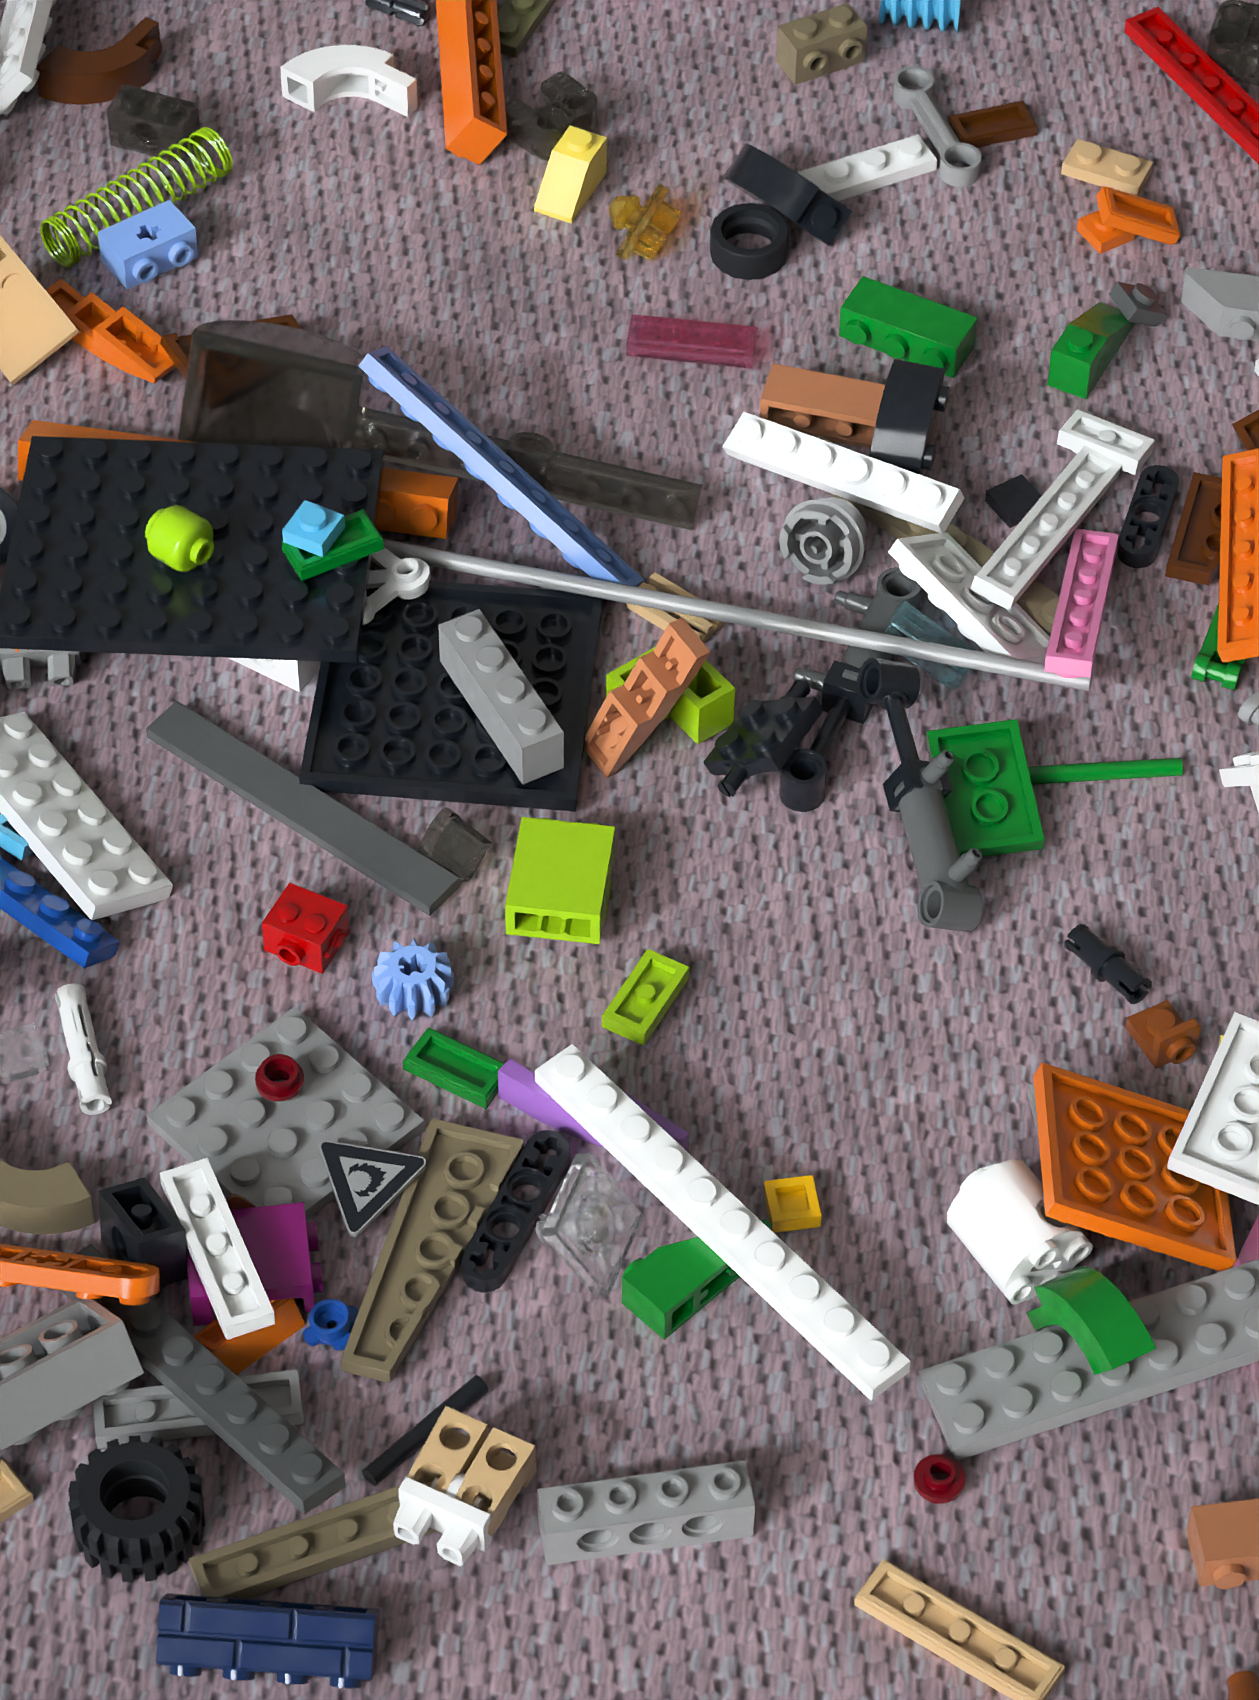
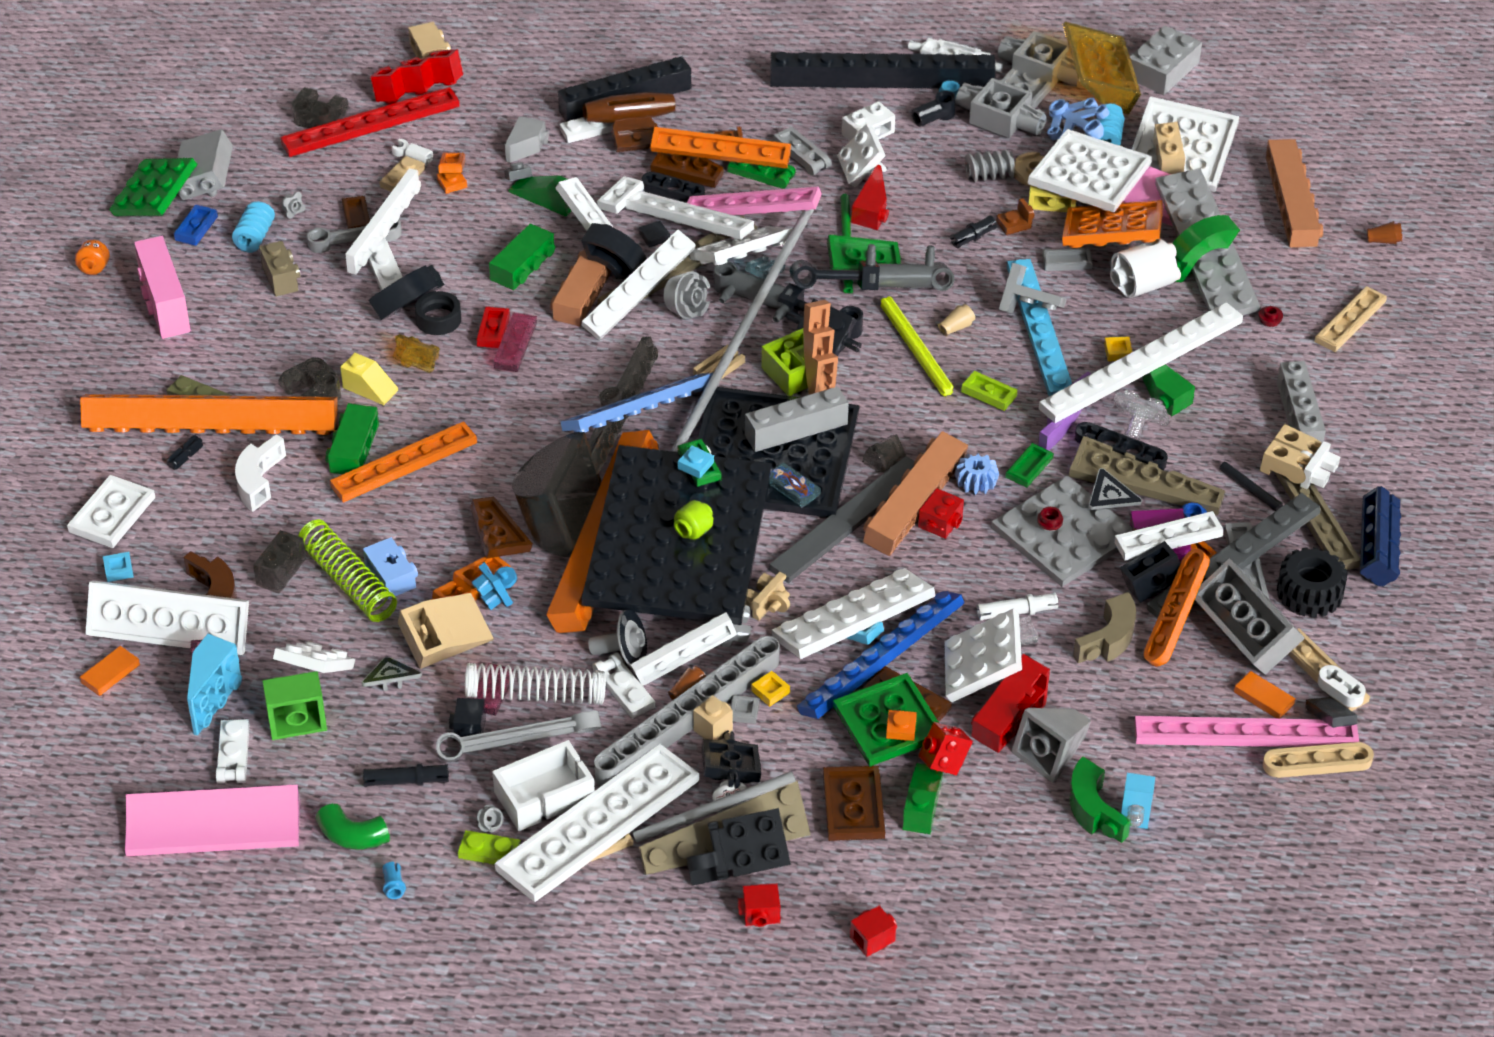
camera: 85 degrees left, 5 degrees down
(93, 703) = (771, 598): none -> tan hips
(97, 355) = (493, 587): none -> dark azure hips
(350, 709) = (794, 485): none -> tile
(377, 891) = (901, 510): none -> nougat brick
(392, 240) = (403, 461): none -> orange plate
(430, 175) = (353, 438): none -> green brick
(560, 880) = (918, 409): lime brick -> none
(727, 307) = (493, 327): none -> red plate
(763, 887) = (917, 346): none -> neon yellow axle
(840, 944) = (958, 319): none -> tan cone
(850, 1078) = (1042, 335): none -> medium azure plate
(903, 1027) = (1014, 288): none -> light grey bracket
(944, 136) = (382, 221): none -> white plate
(998, 40) = (288, 203): none -> light grey plate
(1006, 395) = (581, 203): none -> white plate
(1164, 800) = (870, 205): none -> red slope
(1166, 173) = (413, 151): none -> white bar

